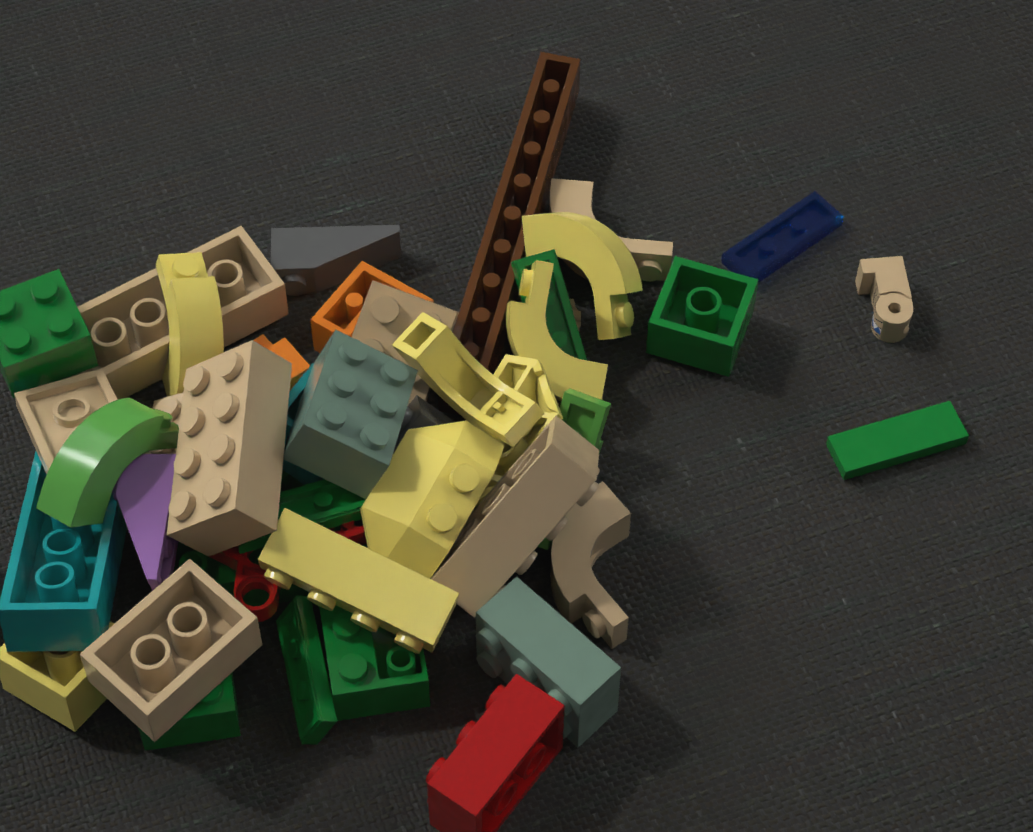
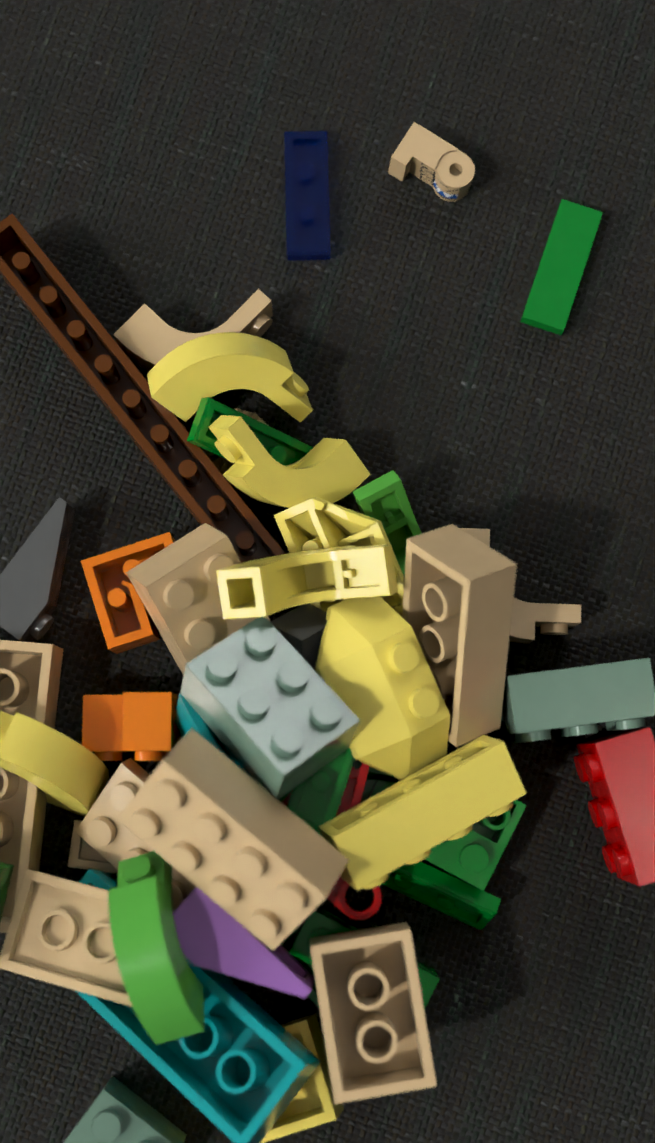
camera: 55 degrees left, 25 degrees up
(701, 316) = (345, 322): green brick -> none

